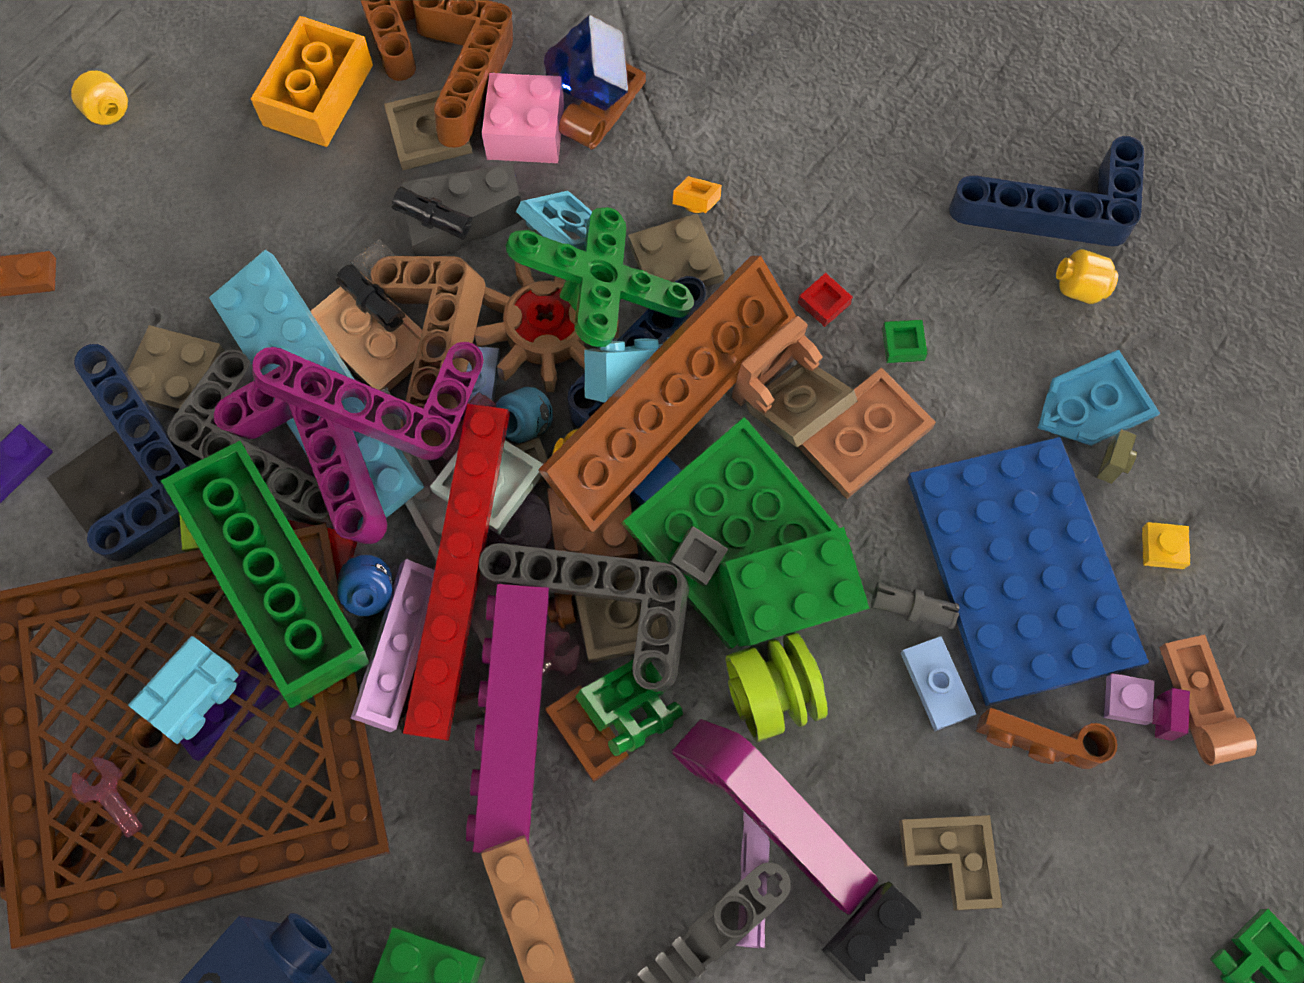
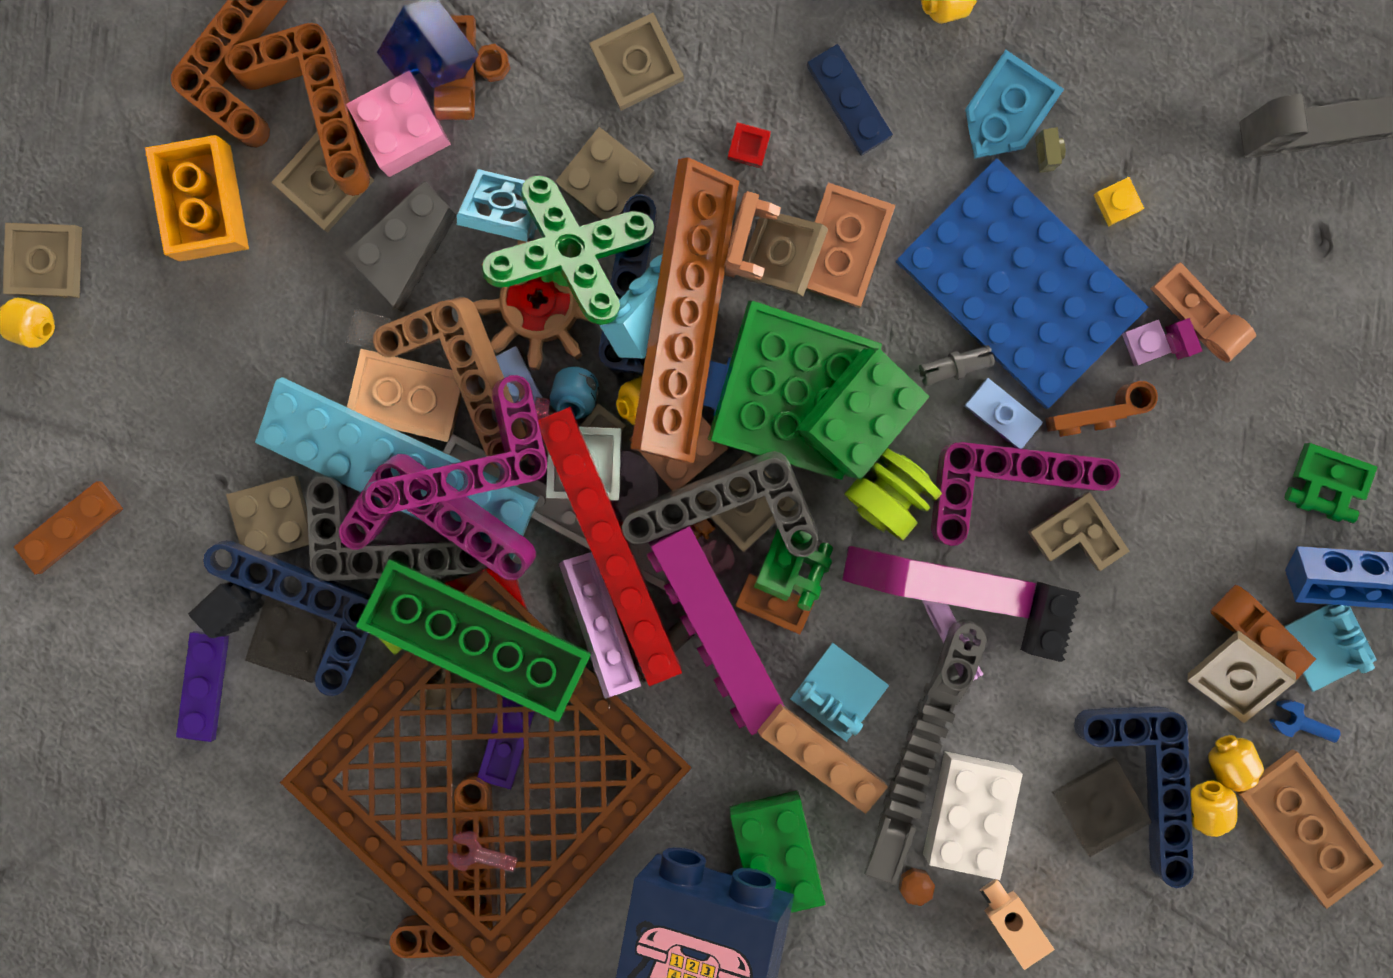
camera: 35 degrees left, 20 degrees up
(66, 414) = (226, 609): none -> black brick
(153, 62) = (42, 260): none -> dark tan plate
(185, 691) = (480, 756): medium azure brick -> none
(364, 585) = (546, 597): blue head -> none
(370, 298) = (389, 369): black pin -> none
(431, 212) = (393, 271): black pin -> none
(597, 872) = (839, 692): none -> medium azure hinge
(637, 117) = (492, 63): none -> dark orange tile
(696, 195) = (588, 109): light orange plate -> none
(698, 556) = (782, 433): dark grey plate -> none
(765, 181) = (637, 61): none -> dark tan plate
(904, 341) = (832, 145): green plate -> none
(914, 747) = (1010, 470): none -> magenta beam
(943, 315) = (849, 99): none -> dark blue plate

